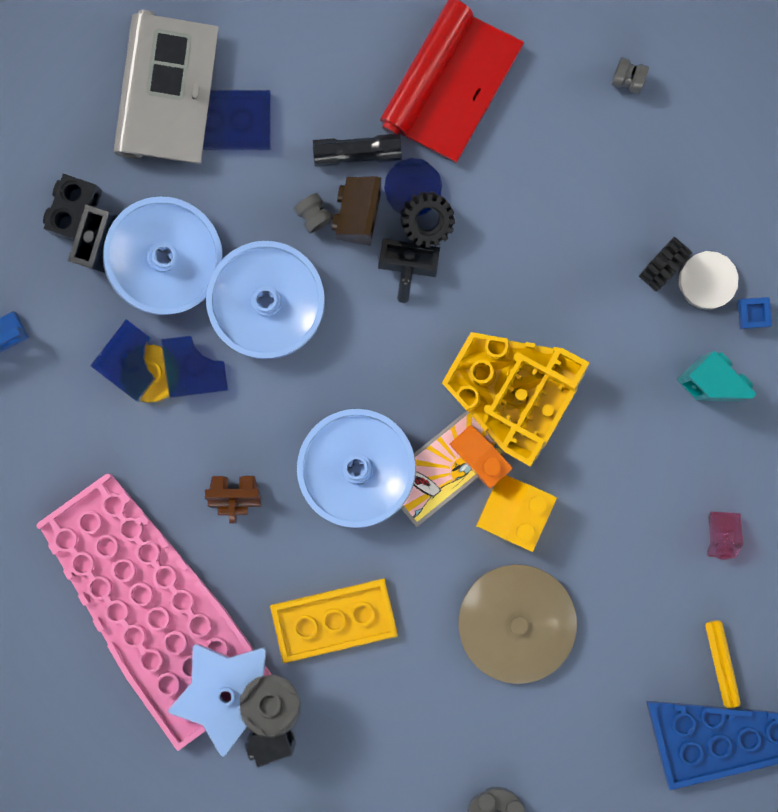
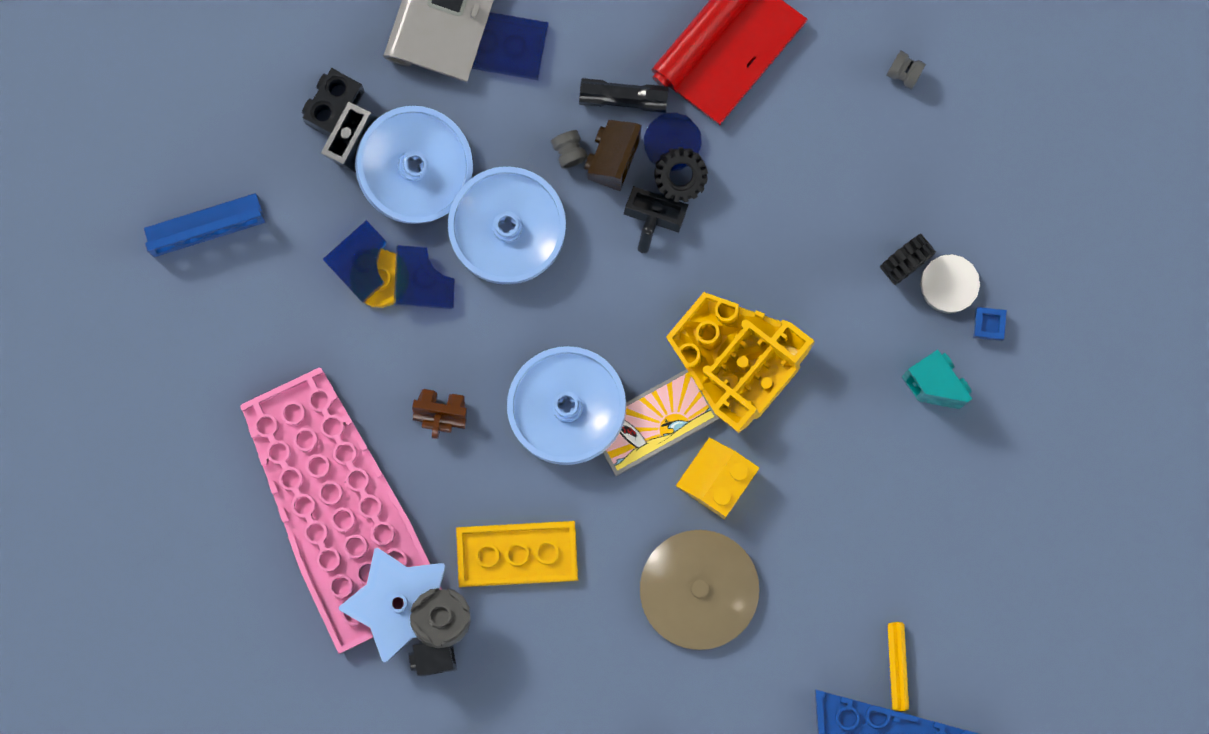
camera: 10 degrees right, 5 degrees down
(480, 456) = (691, 415): orange slope -> none
(725, 535) = (922, 538): clear pink bracket -> none

